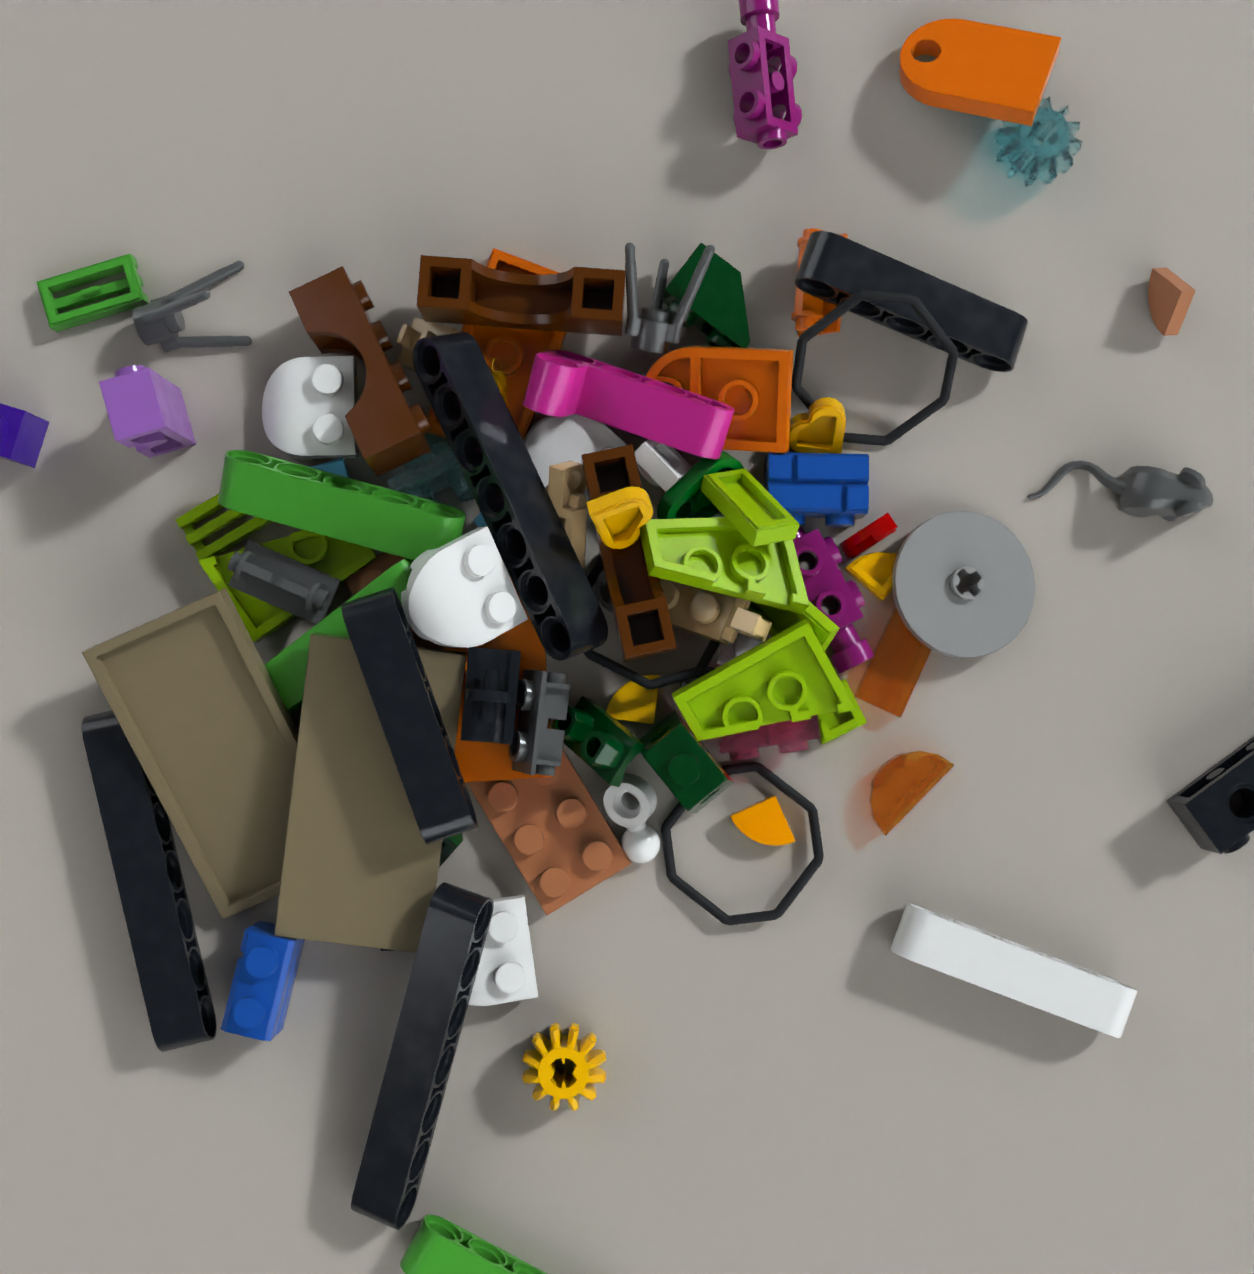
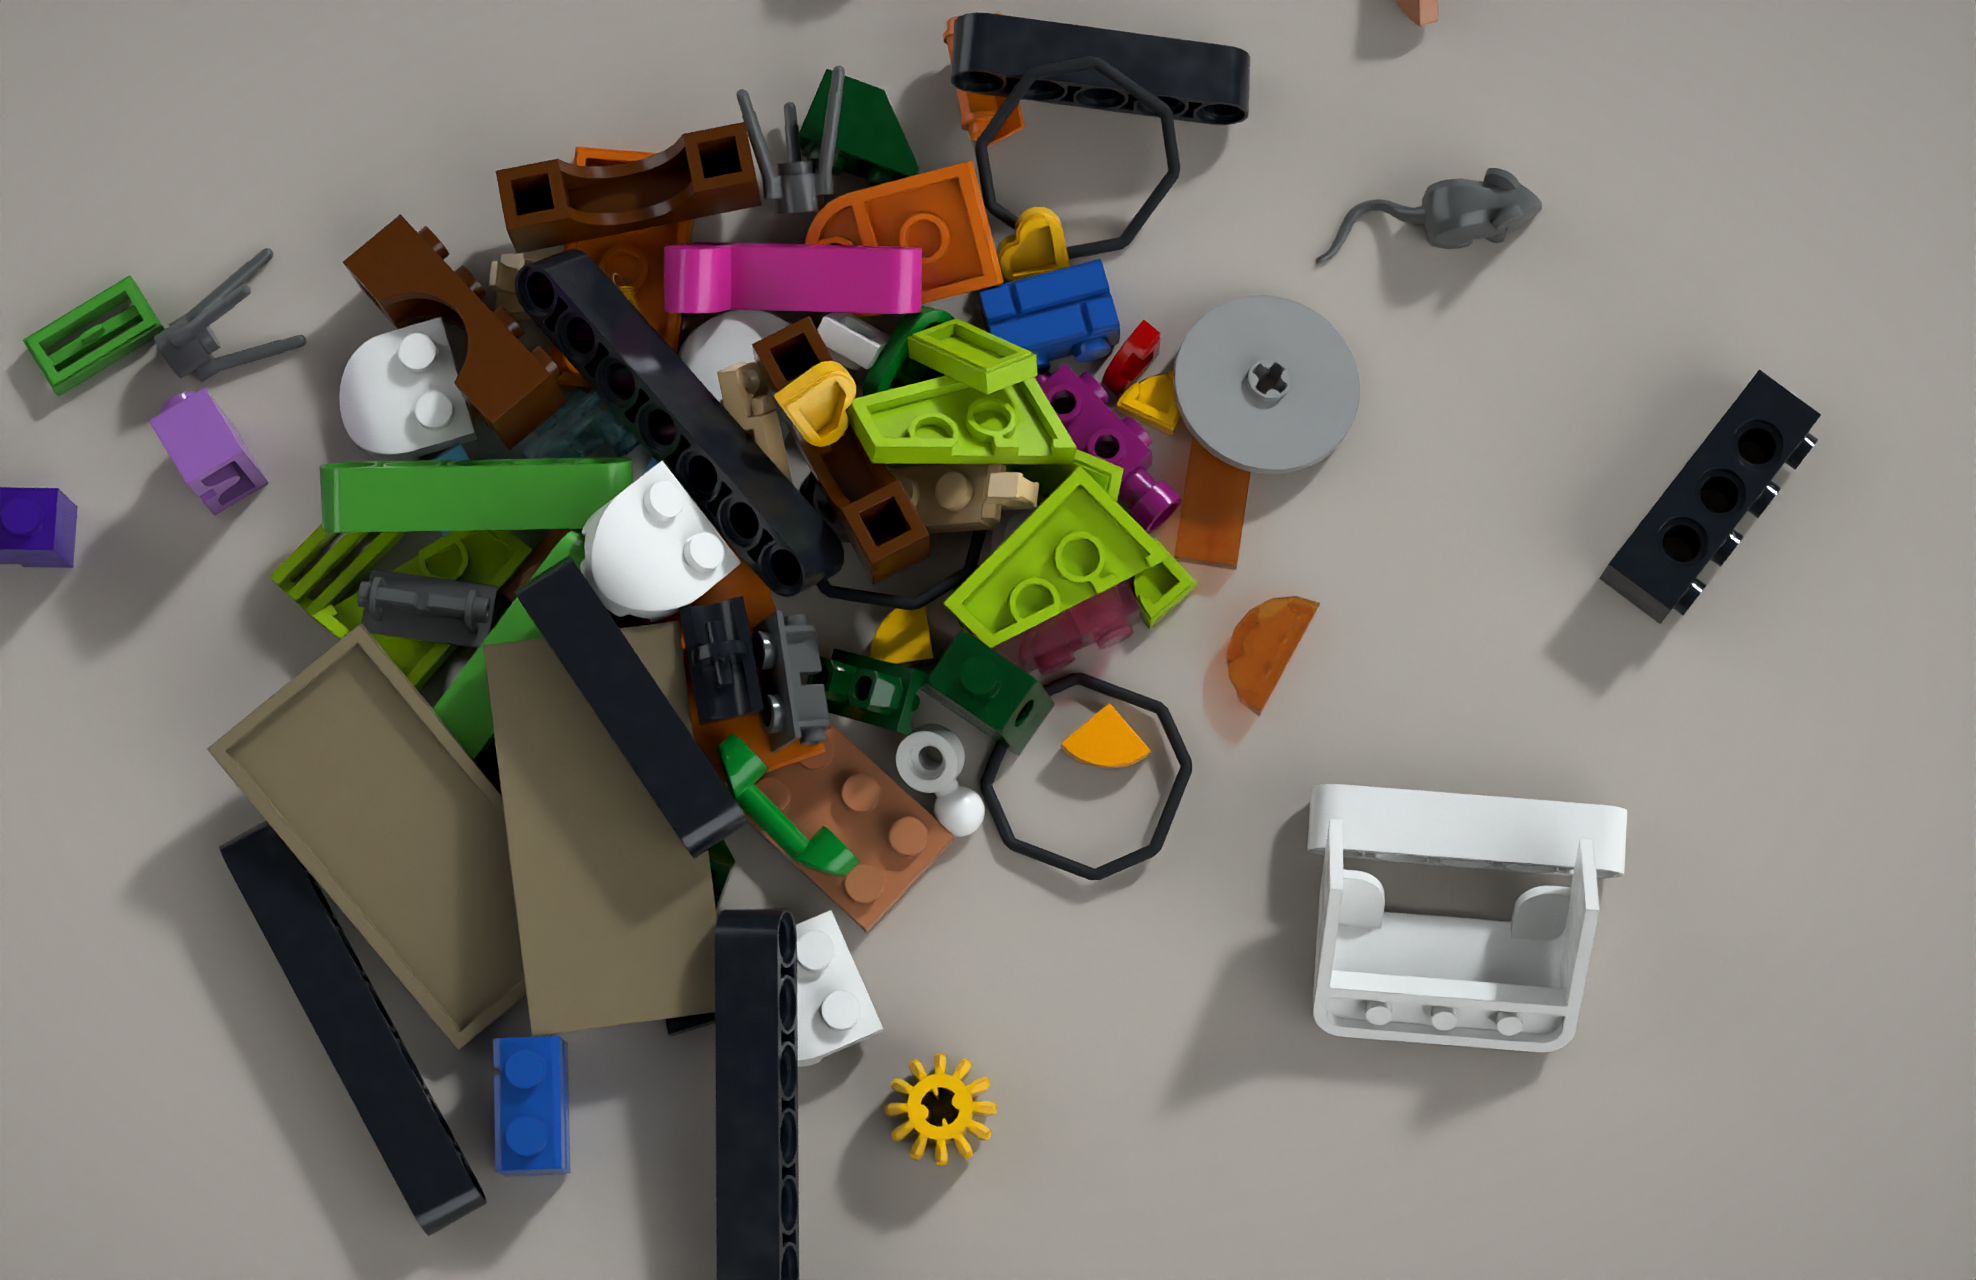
camera: 10 degrees left, 10 degrees down
(527, 857) = (741, 771): none -> green bar
(979, 1076) = (1452, 976): none -> white windscreen

